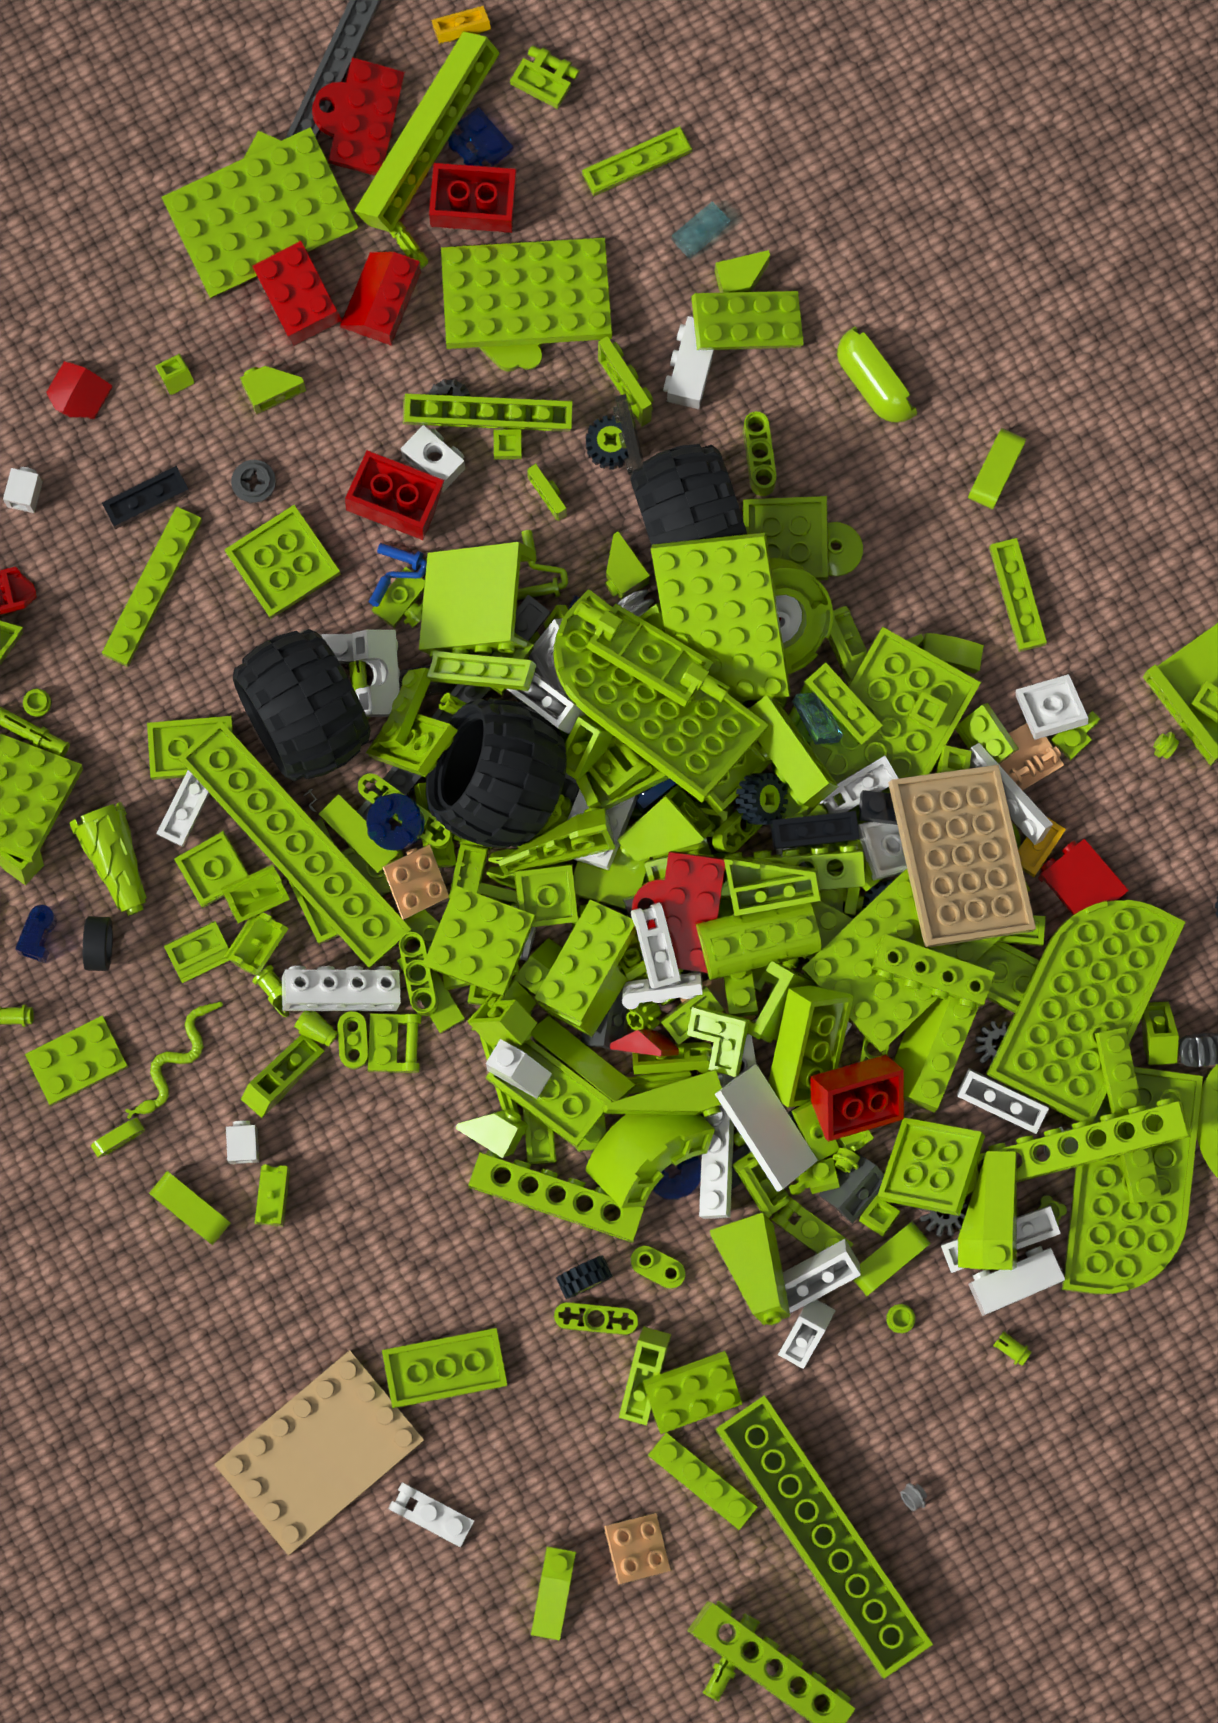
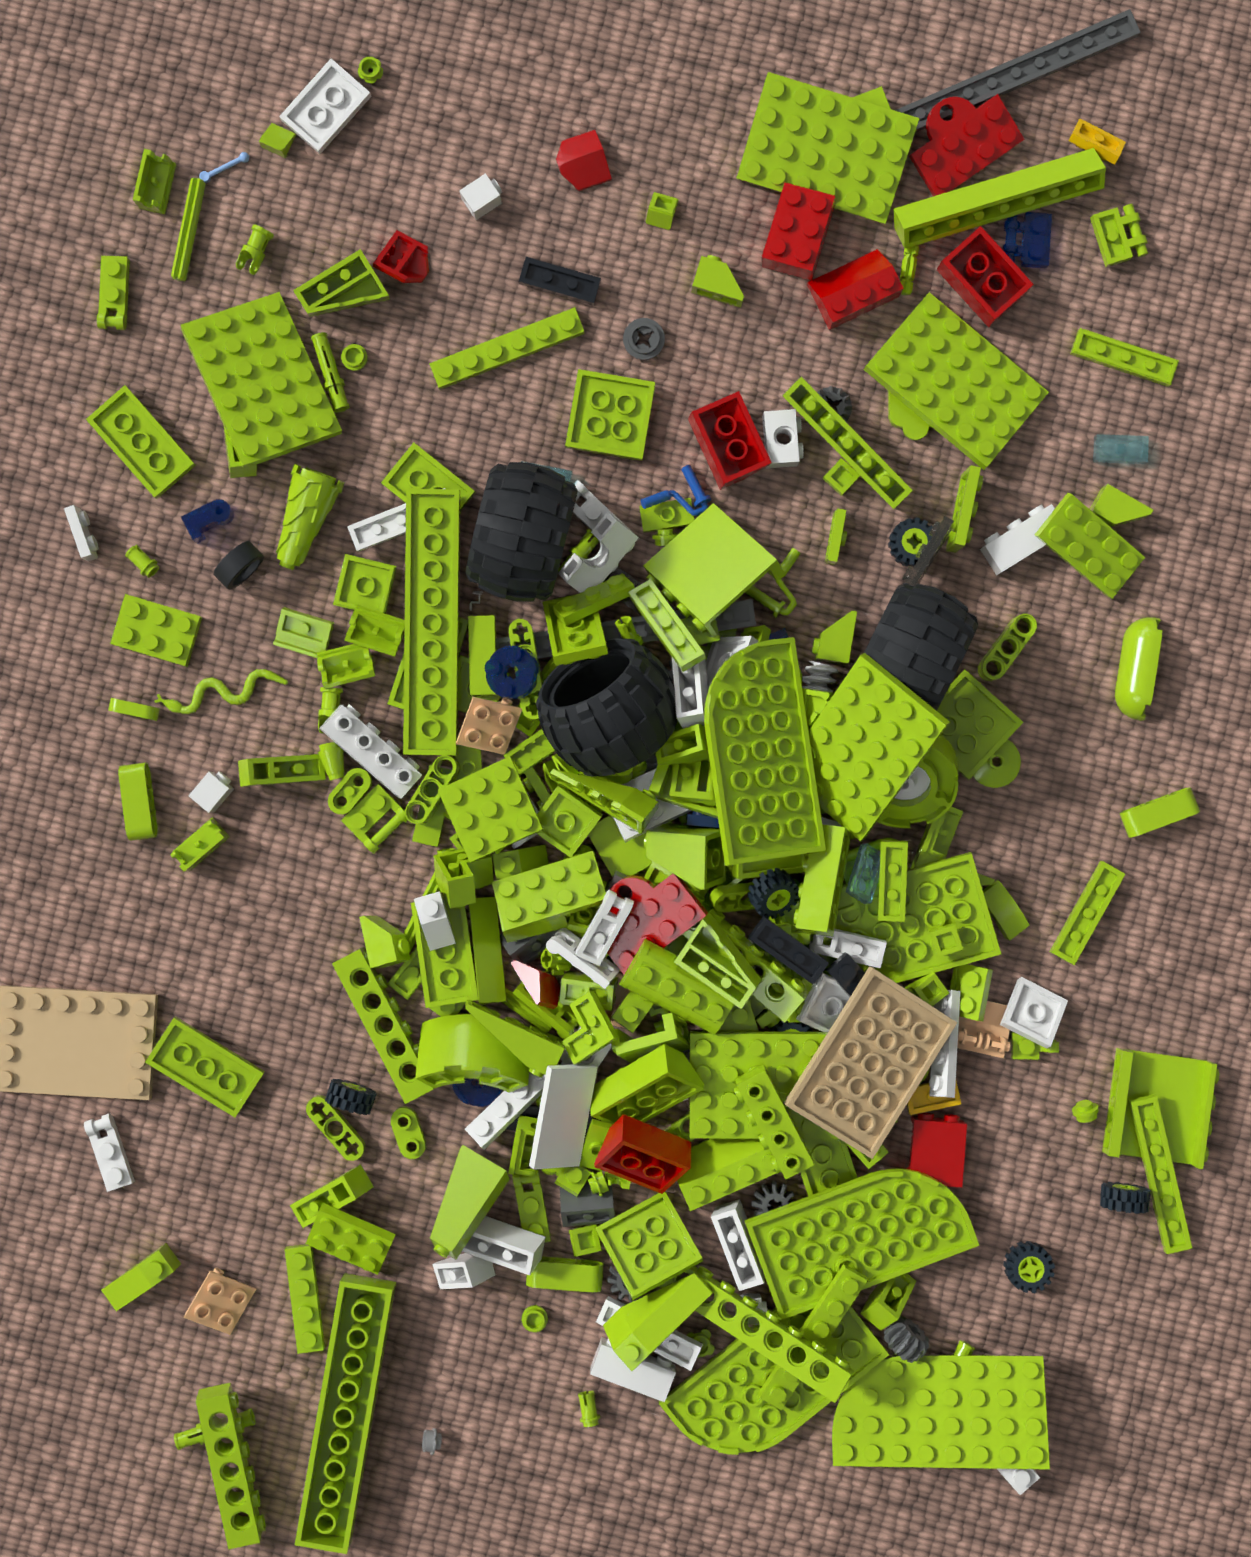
camera: 40 degrees right, 10 degrees up
(649, 654) = (790, 726): lime plate -> none

